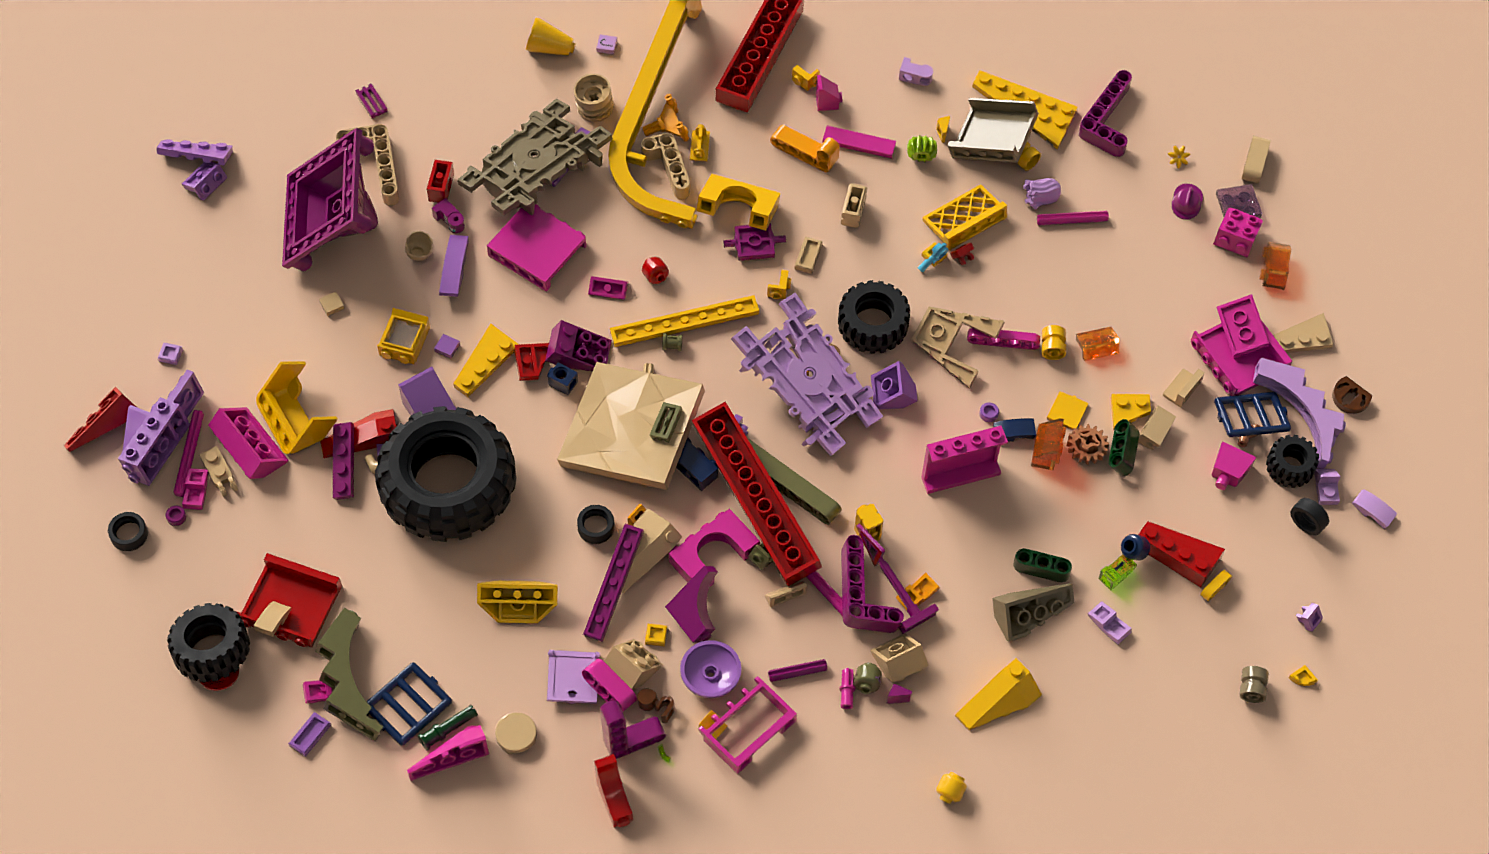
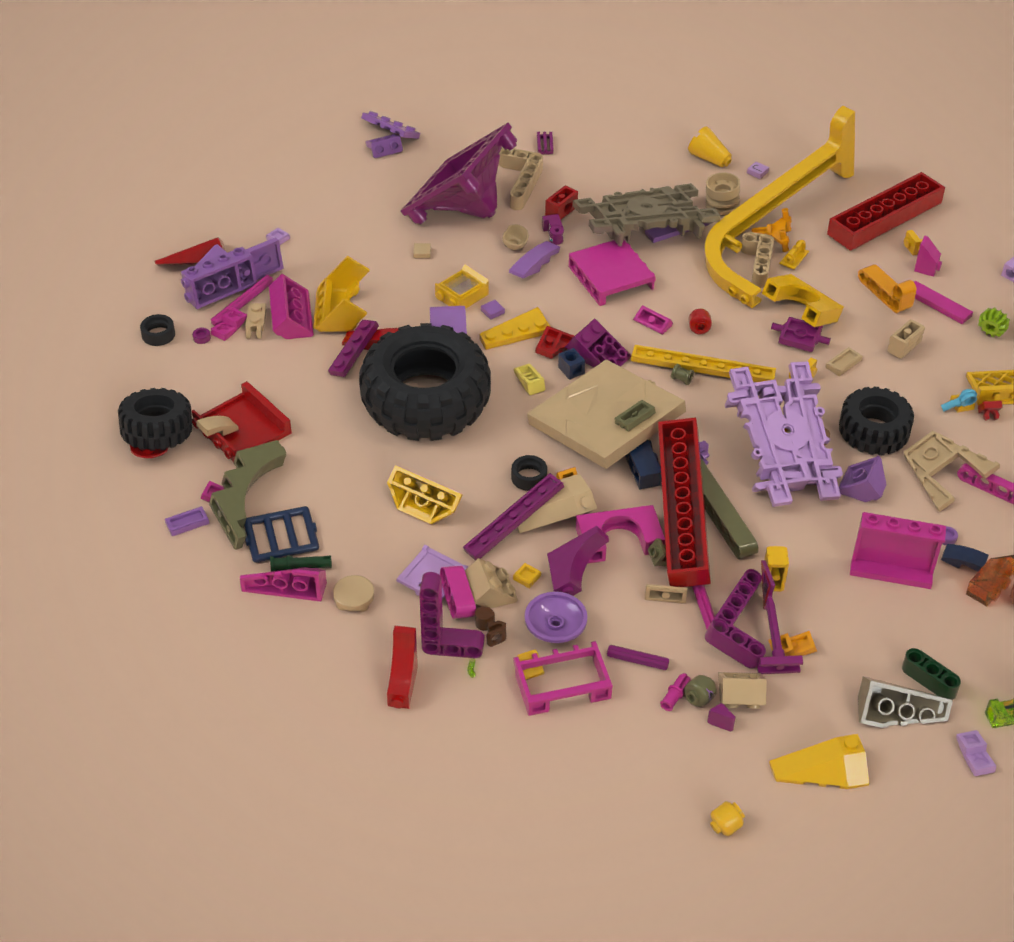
camera: 30 degrees right, 15 degrees down
(541, 420) = (531, 381): none -> light yellow slope

